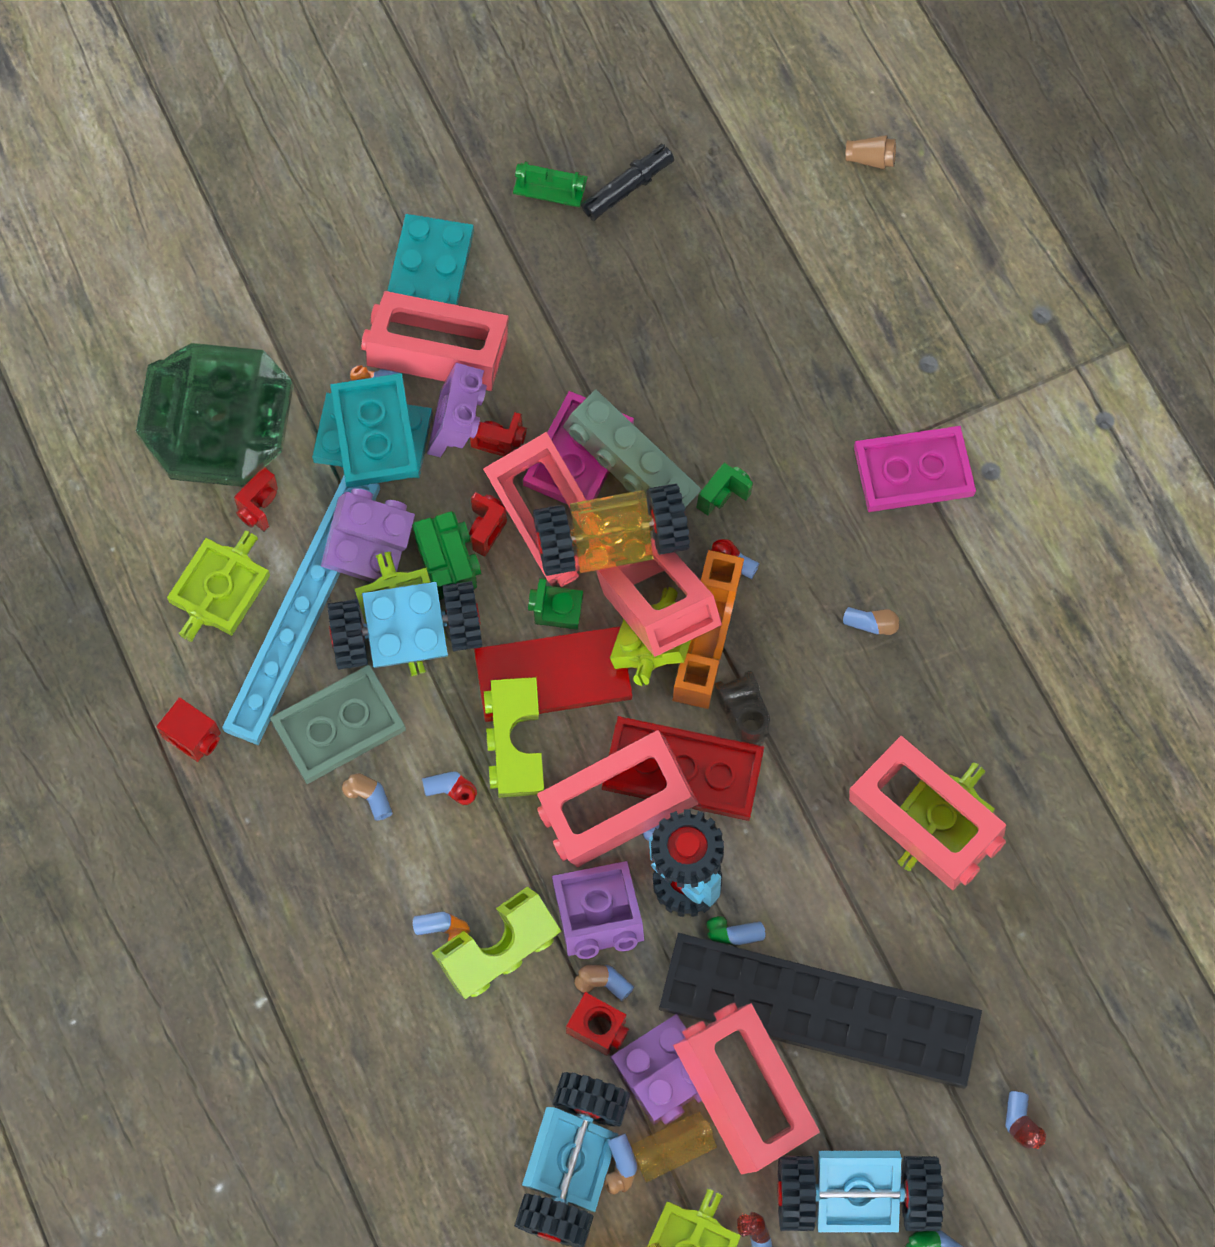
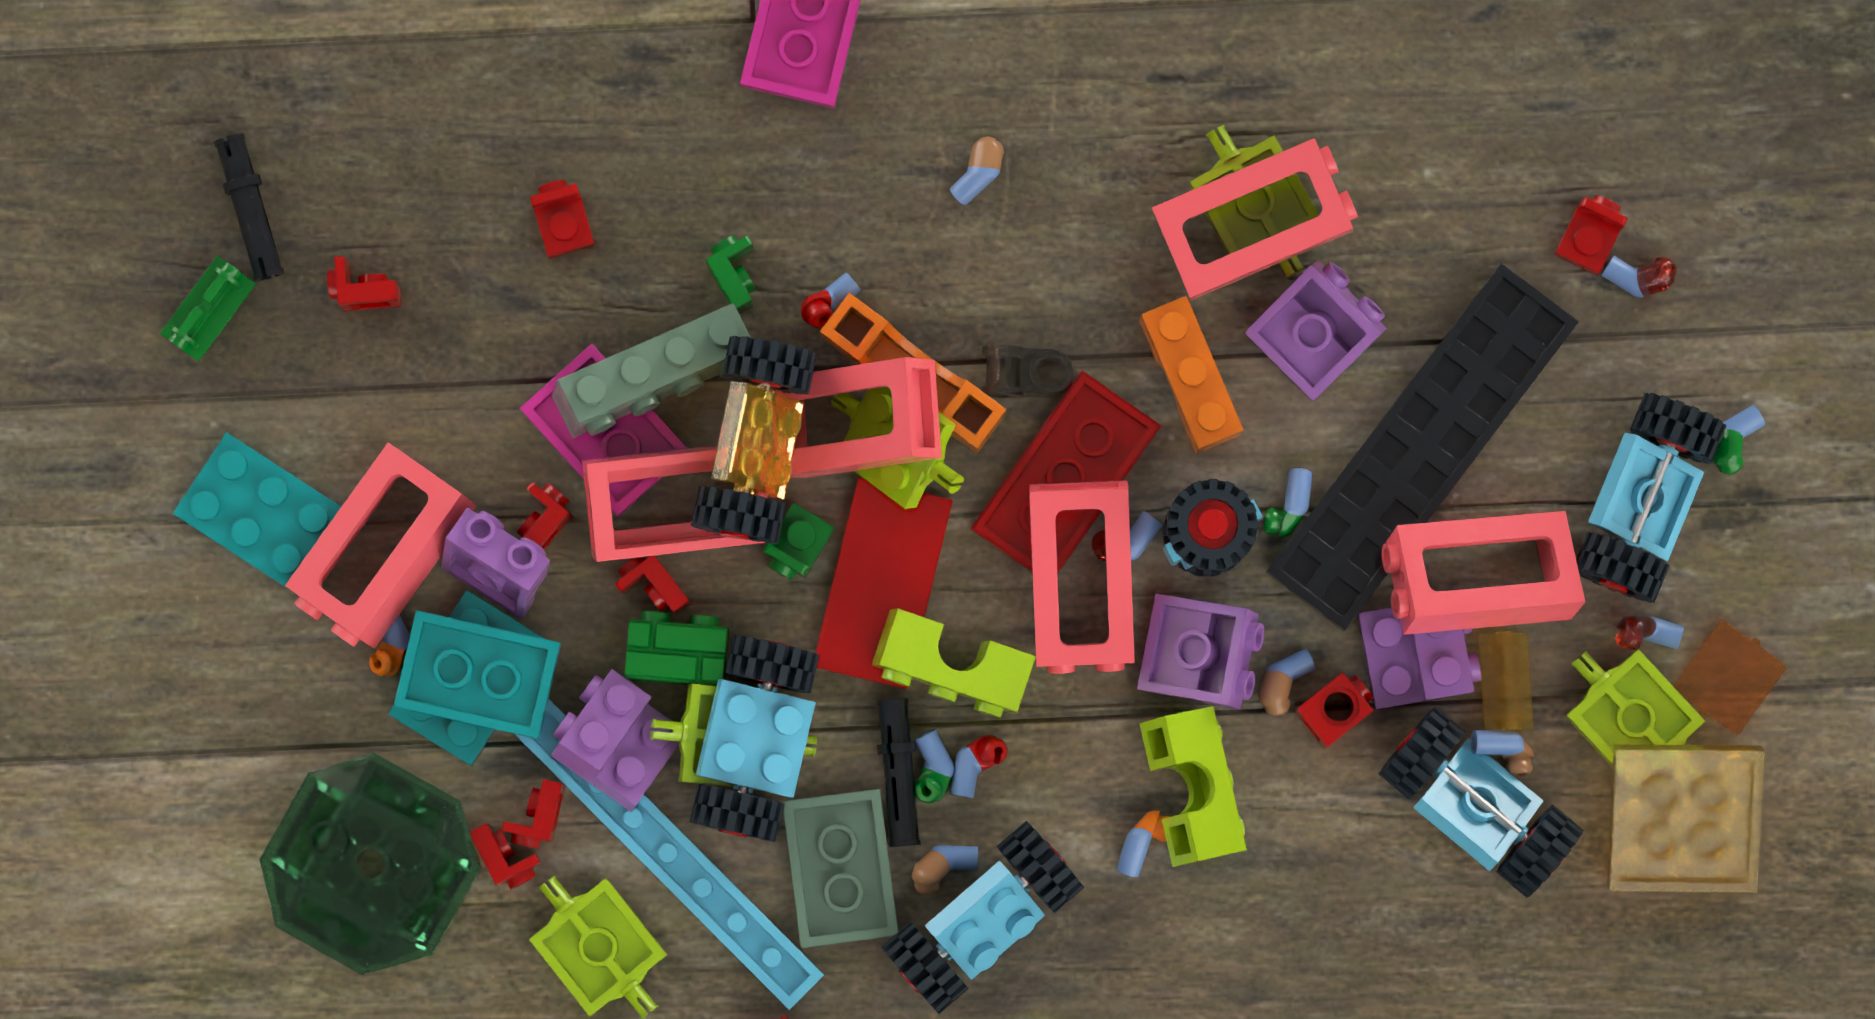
camera: 65 degrees left, 15 degrees up
(299, 515) = (544, 807): none -> red bracket
(338, 831) = (984, 918): none -> plate
(419, 738) = (898, 772): none -> black pin
(435, 762) = (936, 770): none -> arm
(602, 266) = (370, 292): none -> red bracket
(710, 370) = (562, 218): none -> red bracket
(793, 819) = (1192, 374): none -> orange arch
(871, 896) = (1317, 328): none -> medium lavender plate
(1036, 1071) = (1591, 233): none -> red bracket

